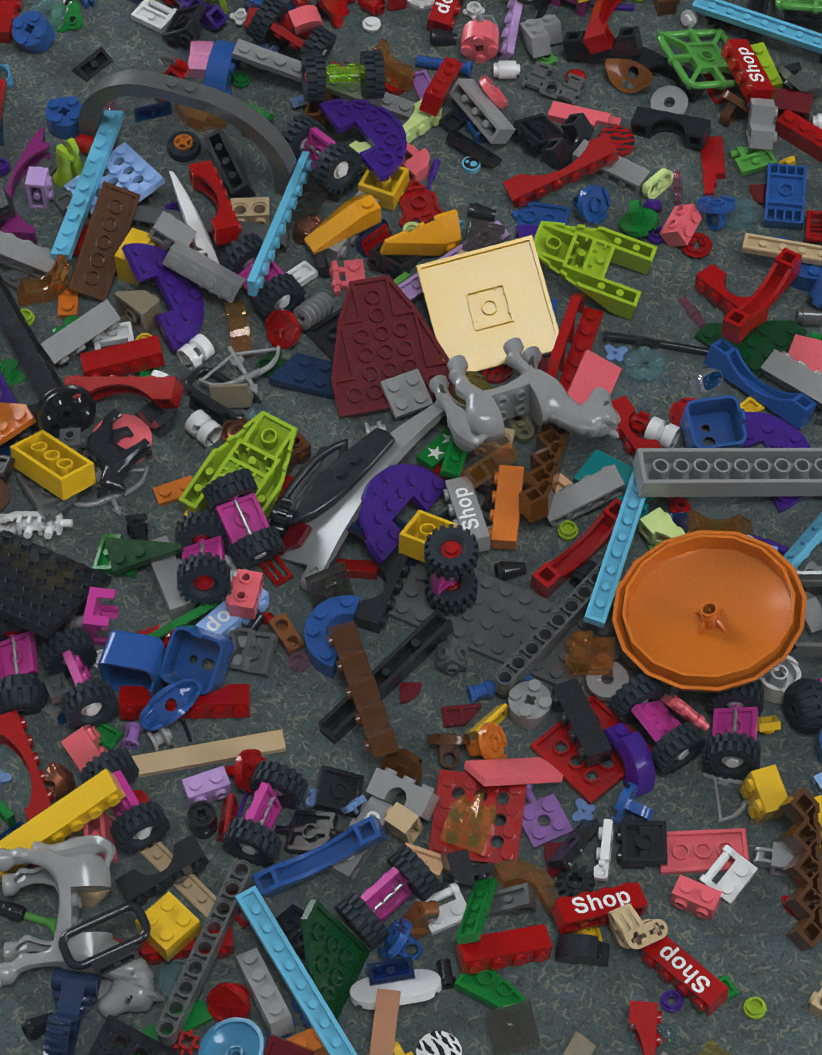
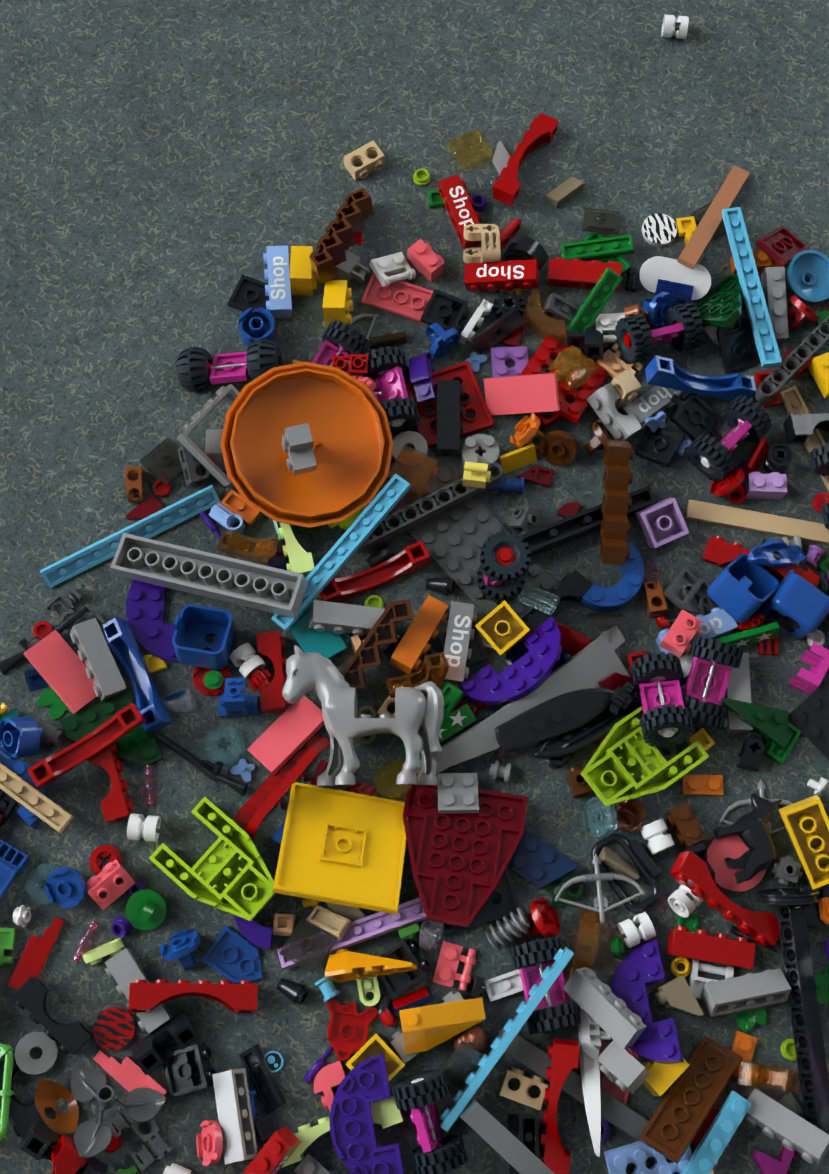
camera: 160 degrees left, 15 degrees up
(180, 446) = (685, 825): none -> reddish brown brick
(210, 334) = (617, 947): none -> green plate
(305, 702) = (662, 522): none -> lavender brick
(393, 223) = (385, 1014): none -> arm
(405, 577) = (525, 592): none -> clear light blue tile
(502, 988) = (598, 248): none -> green tile
(521, 655) = (476, 475): none -> light yellow brick
(588, 54) = (89, 1083): none -> dark grey plant
(620, 972) = (509, 232): none -> red slope
(654, 388) = (235, 700): none -> blue tile
(677, 275) = (142, 827): none -> white wheel
(680, 404) = (213, 680): none -> green plate
(692, 795) = (388, 339): none -> dark brown pin
(709, 725) = (353, 365): none -> red slope
(711, 586) = (298, 445): none -> light grey brick
(742, 183) = (22, 915): none -> white plate
(758, 192) = (11, 898): dark red tile -> none

